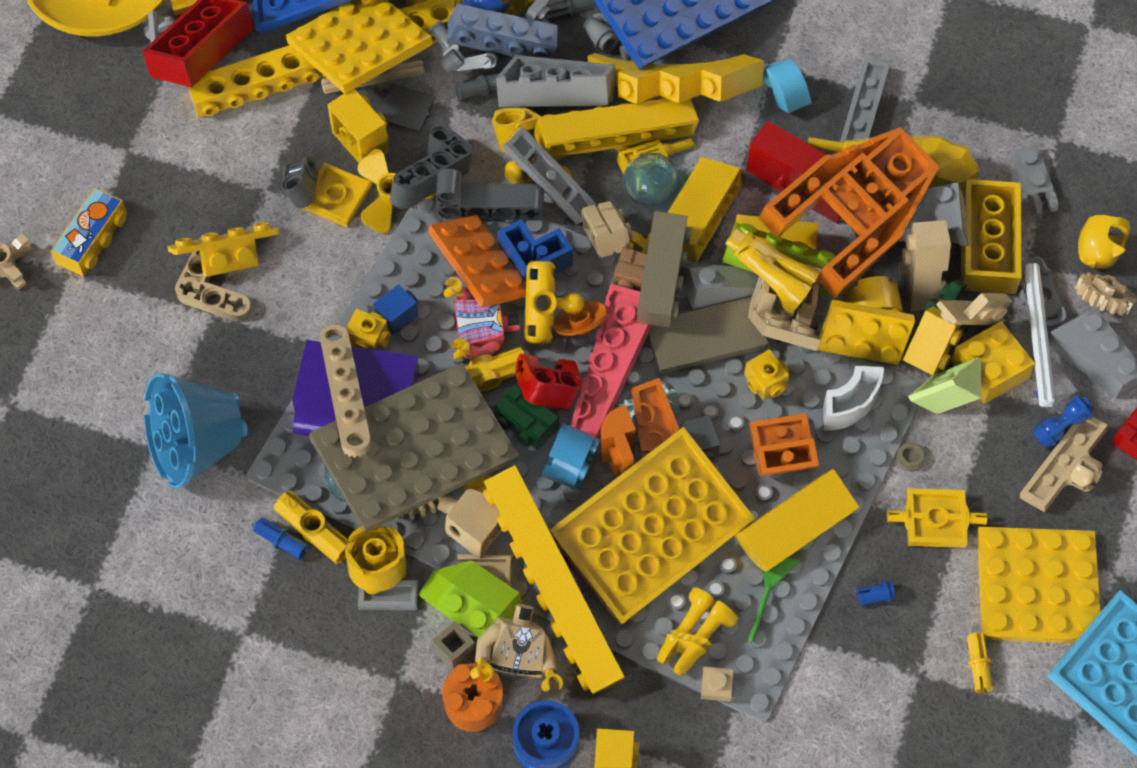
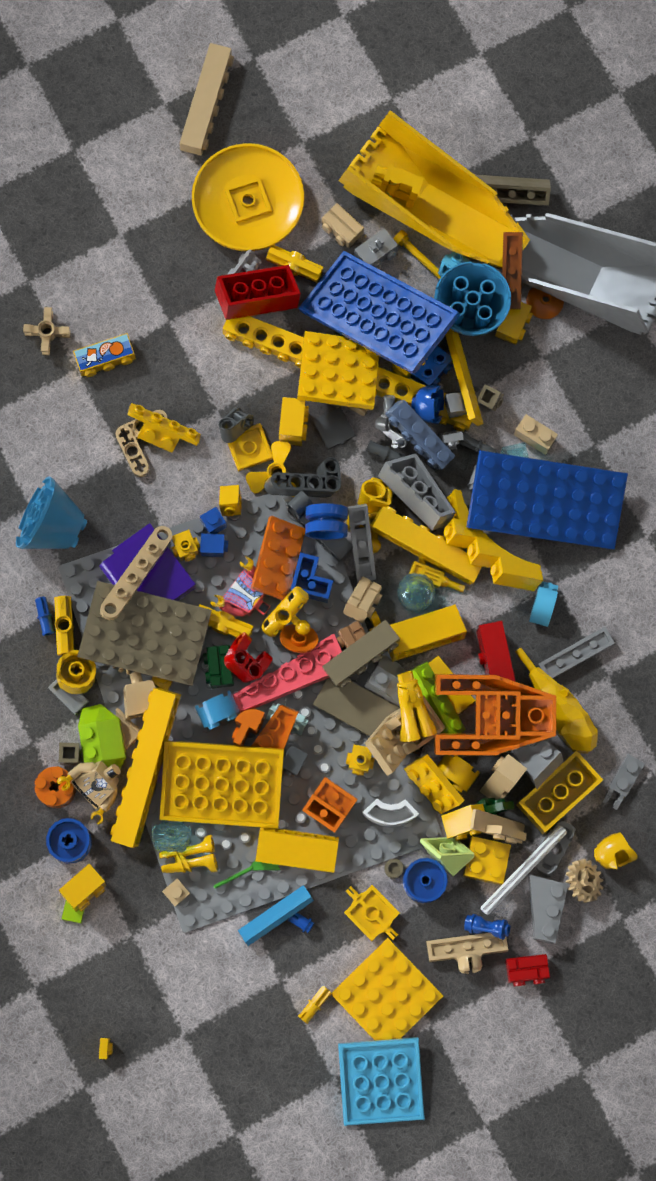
camera: 40 degrees right, 15 degrees up
(369, 253) = (230, 500): none -> yellow brick
(372, 284) = (213, 521): none -> blue brick
(496, 174) = (326, 521): none -> blue wheel
(653, 626) = (164, 842): none -> clear light blue plate
(844, 610) = (275, 915): none -> dark azure tile
(955, 434) = (413, 880): none -> blue wheel

